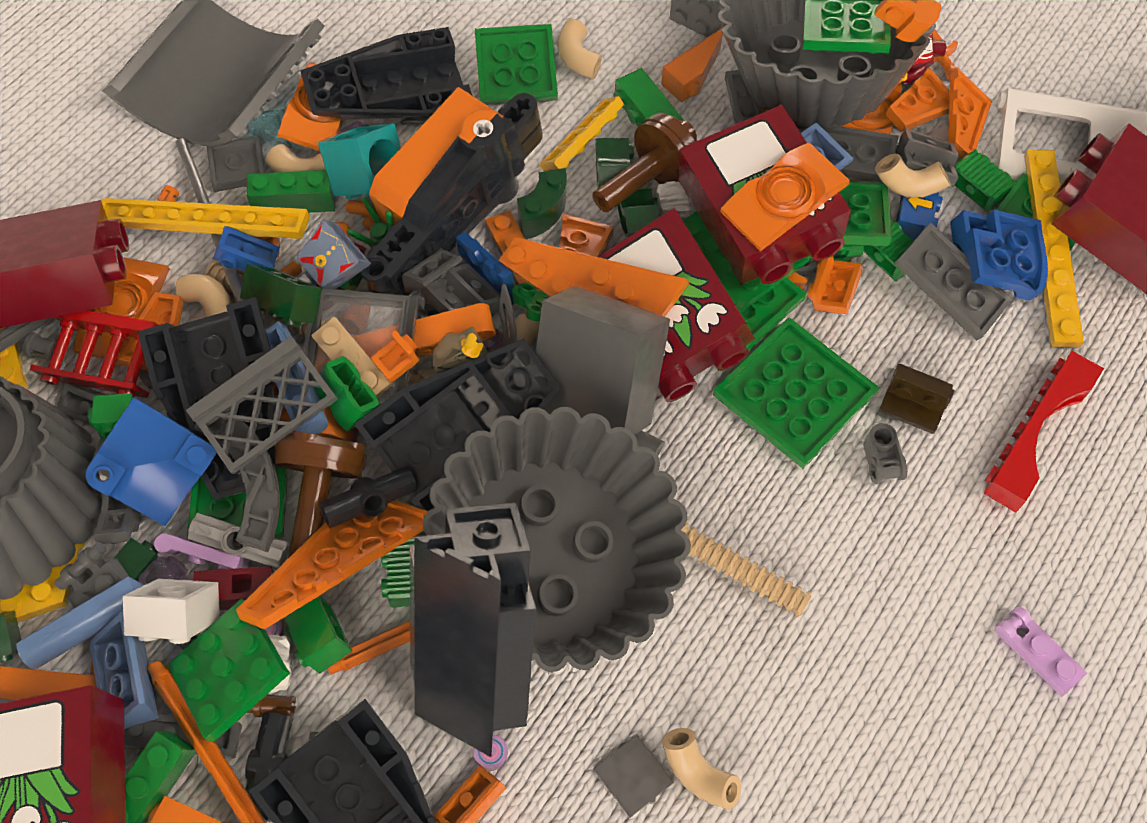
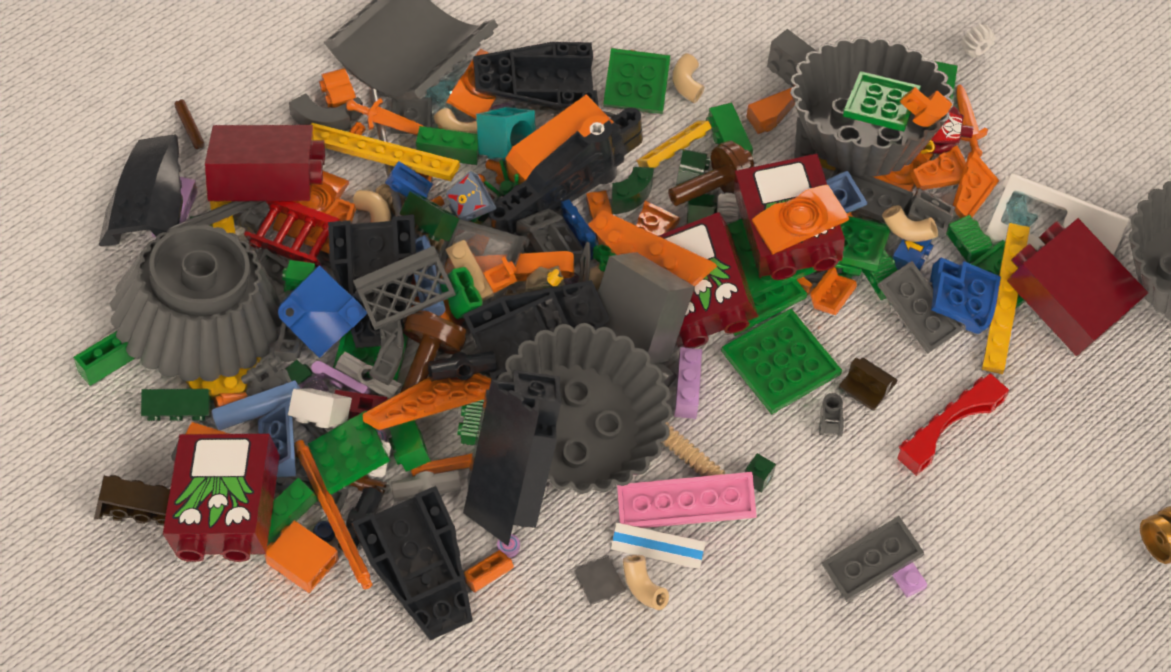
camera: 10 degrees right, 5 degrees down
(40, 618) = (226, 398): none -> orange cone
(134, 150) = (337, 88): none -> orange brick
(139, 184) = (306, 112): none -> dark grey arch
(198, 171) = (384, 117): none -> orange sword
(212, 799) = (324, 531): none -> dark blue plate
(352, 687) = (407, 488): none -> light grey piece
(683, 449) = (688, 383): none -> lavender brick
(702, 702) = (658, 545): none -> white sticker
(732, 627) = (687, 500): none -> bright pink plate
(813, 559) = (762, 471): none -> dark green brick
(1007, 655) = (873, 558): none -> dark grey plate
(1029, 134) = (1018, 211): none -> clear light blue bracket

